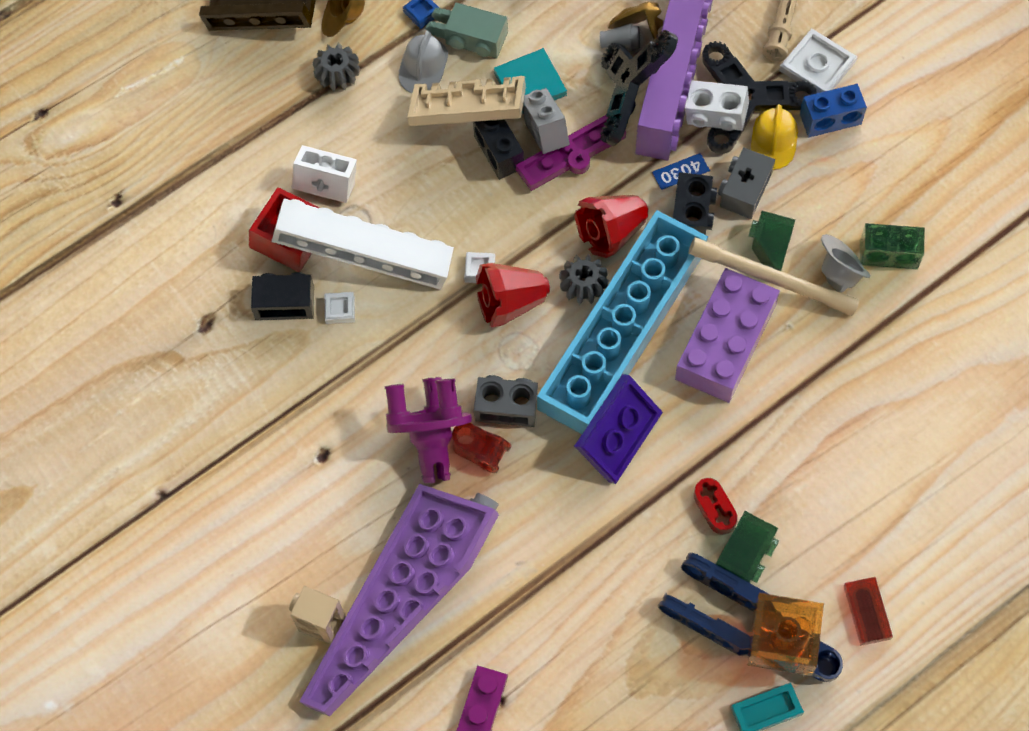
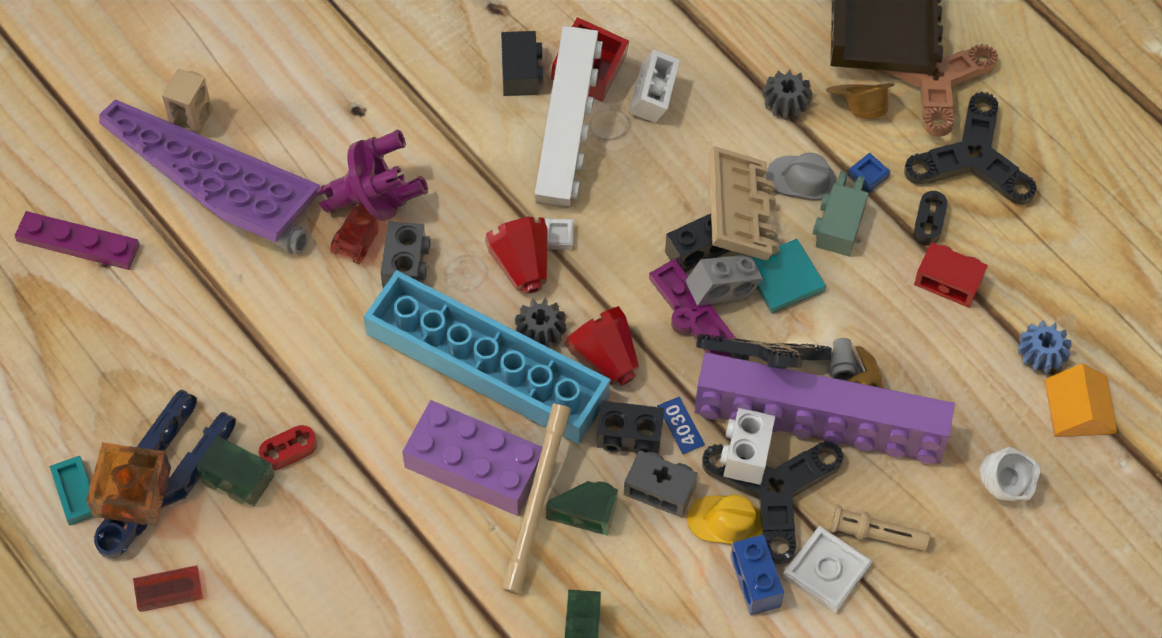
camera: 85 degrees right, 5 degrees down
(339, 307) = (512, 115): white tile -> none
(618, 429) = (366, 351): dark purple tile -> none
(841, 264) = (563, 570): light grey piece -> none

